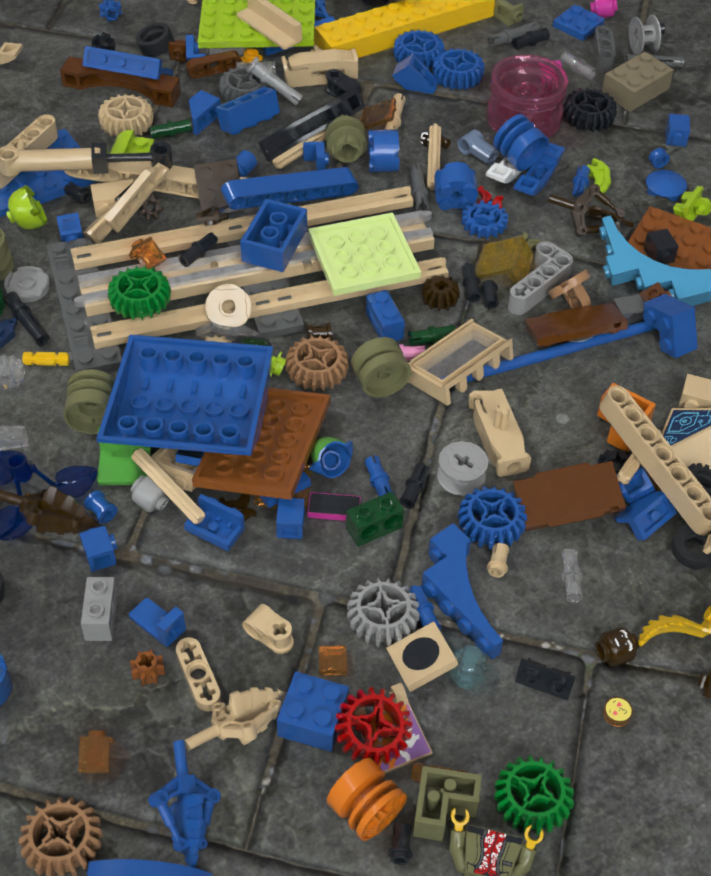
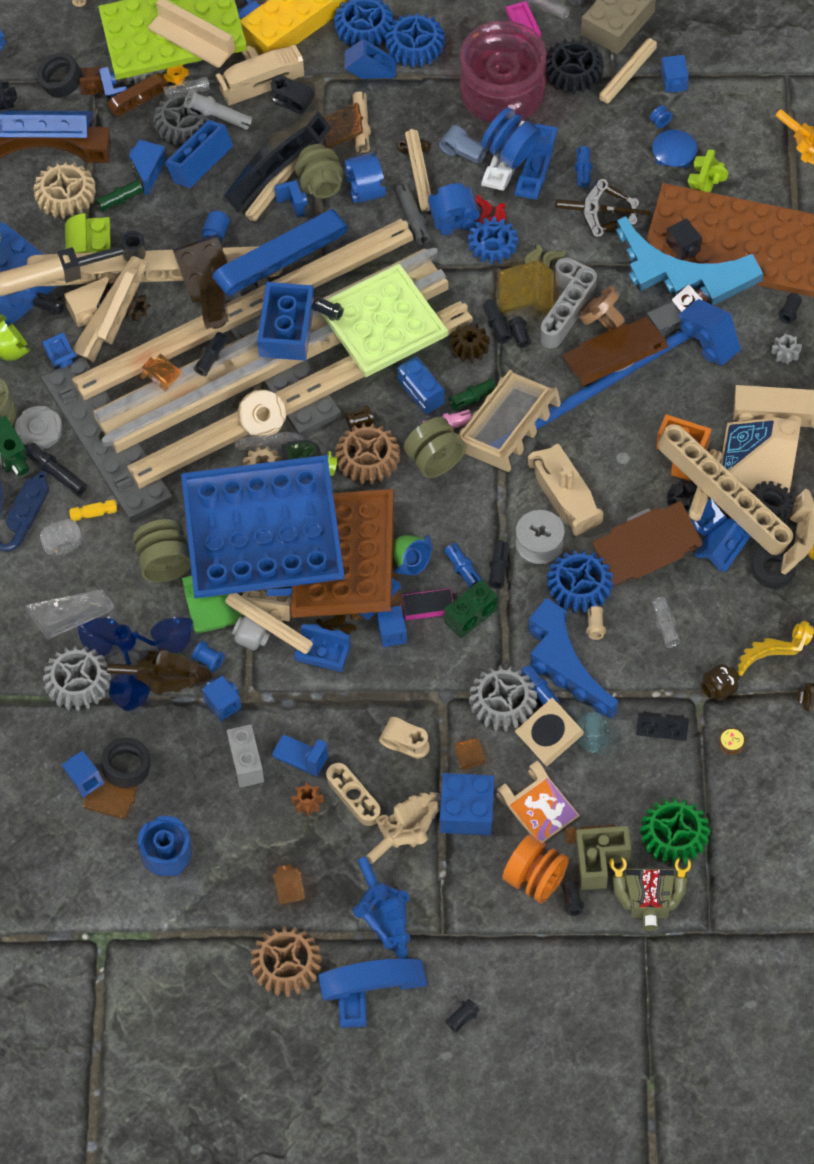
camera: 10 degrees left, 10 degrees up
(139, 292) = (171, 427): green gear -> none
(318, 233) = (332, 310): none -> black pin
(384, 728) = (544, 804): red gear -> none
(601, 174) = (604, 152): lime piece -> none
(636, 122) = (628, 70): none -> tan axle

